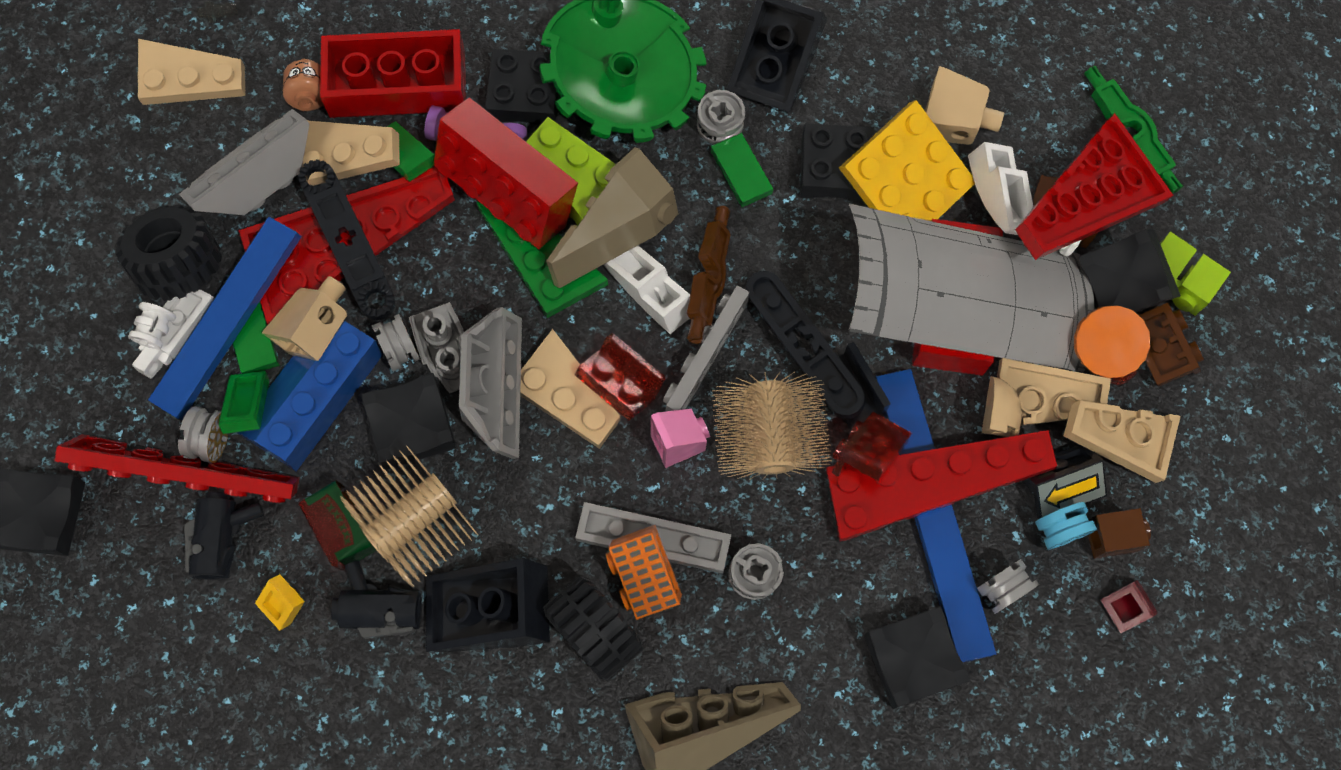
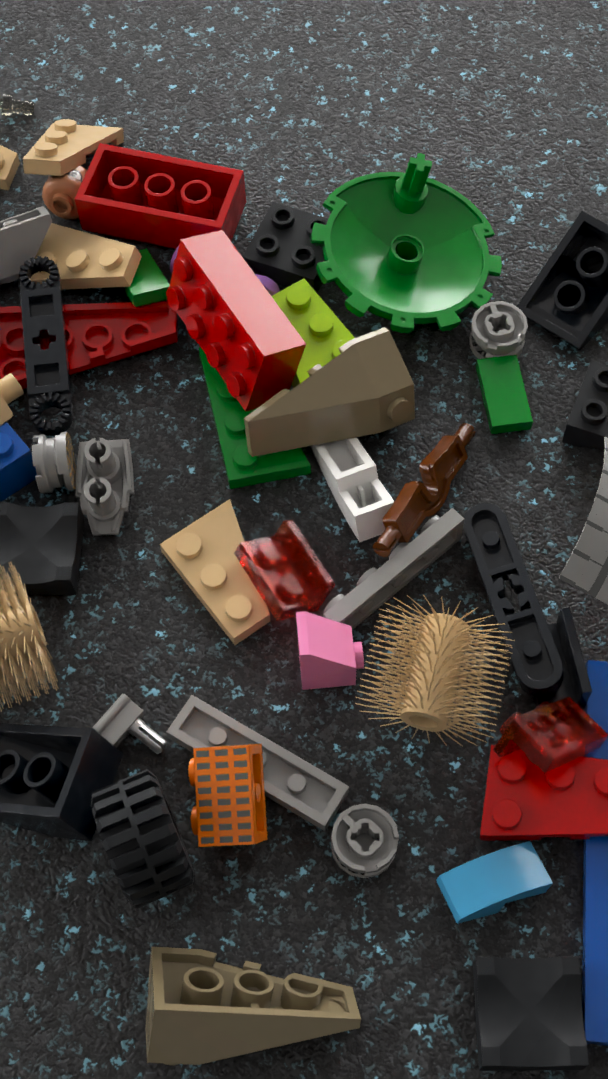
camera: 25 degrees right, 10 degrees down
(288, 43) = (66, 147): none -> tan wing
(492, 380) = (138, 528): light grey wedge -> none
(538, 536) = (126, 718): none -> light grey piece
(860, 570) = (492, 880): none -> dark azure slope

